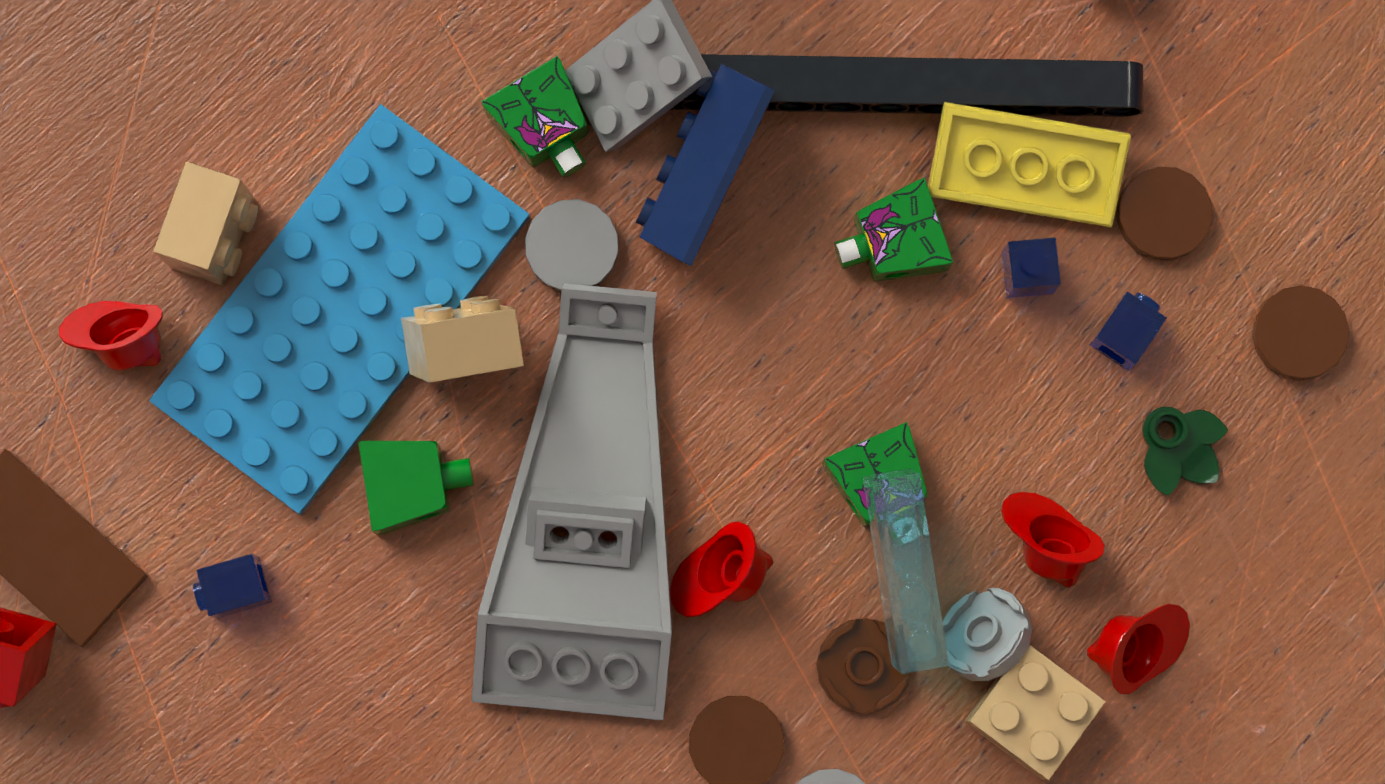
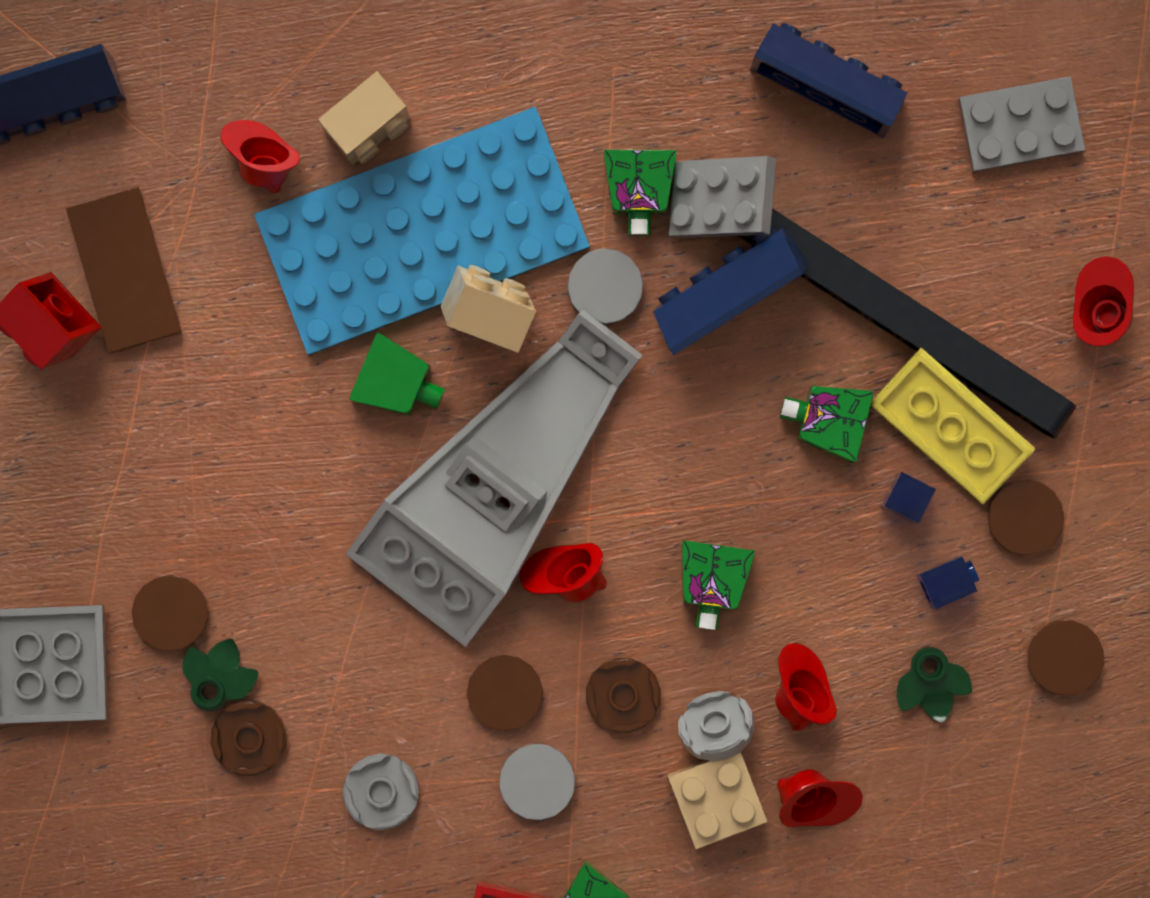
camera: 35 degrees right, 5 degrees up
(231, 586) = (232, 376): clear blue brick -> none
(906, 571) = (688, 650): clear light blue brick -> none

